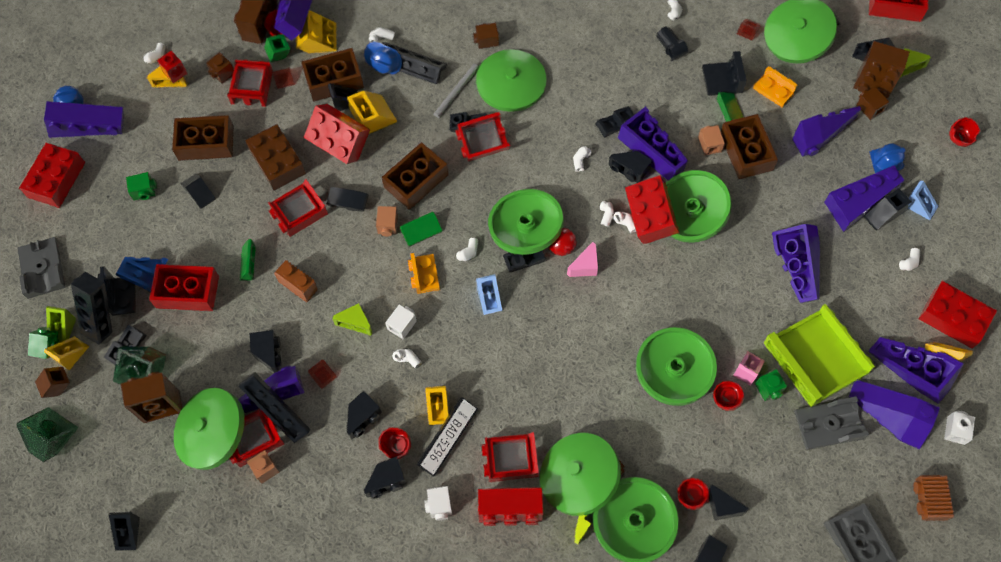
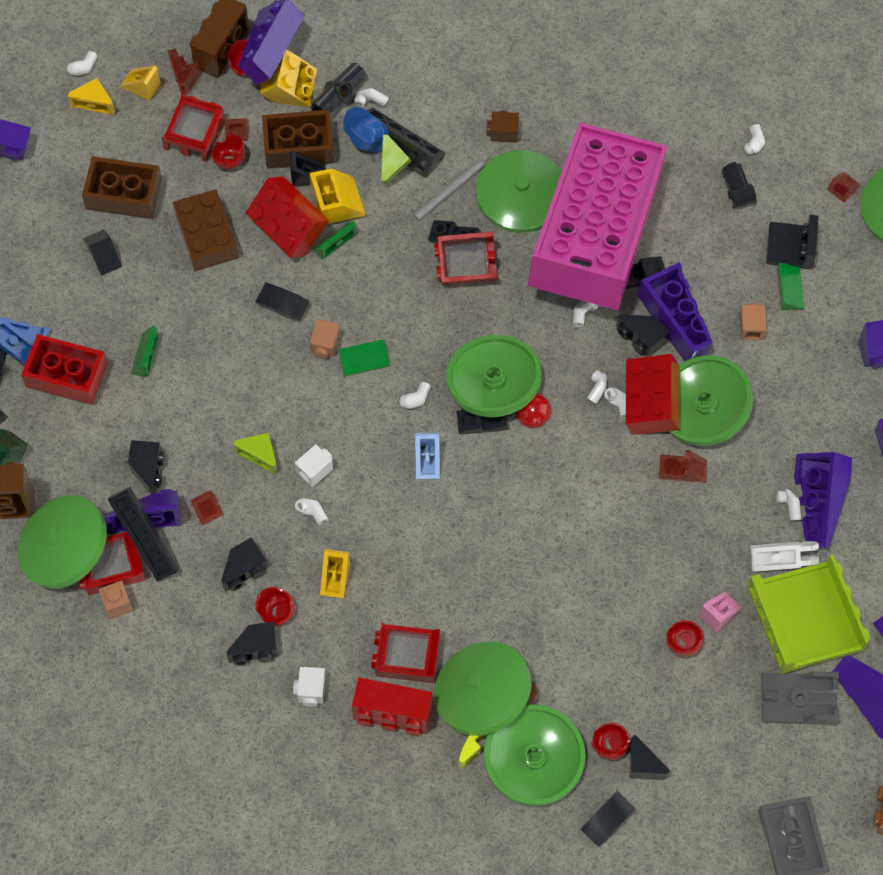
camera: 10 degrees right, 0 degrees up
(141, 186) = (35, 232): green brick -> none
(172, 67) = (101, 89): red brick -> none
(202, 55) = (142, 81): none -> yellow slope
(220, 68) = (160, 101): reddish brown brick -> none
(235, 44) = (184, 74): none -> clear red slope
(277, 48) = (236, 89): green brick -> none
(283, 91) = (233, 147): none -> red hair
(296, 281) = (199, 389): dark orange brick -> none
(297, 209) = (219, 301): red window -> none
(356, 32) = (339, 89): none -> black piece
(378, 144) = (335, 240): none -> green slope
(409, 75) = (393, 159): none -> lime slope
(415, 175) = (371, 290): reddish brown brick -> none
(425, 273) = (355, 413): light orange bracket -> none
(447, 436) = (338, 612): white tile -> none
(577, 85) = (597, 216): none -> dark pink piece
(585, 264) = (553, 443): bright pink slope -> none
(676, 366) = (630, 589): bright green dish -> none
(688, 262) = (683, 468): none -> clear red slope
(748, 146) = (796, 340): reddish brown brick -> none
(771, 385) = (739, 637): green brick -> none
(775, 86) = (855, 270): light orange bracket -> none
(779, 269) = (792, 502): none -> white arm
(784, 313) = (782, 555): none -> white hinge

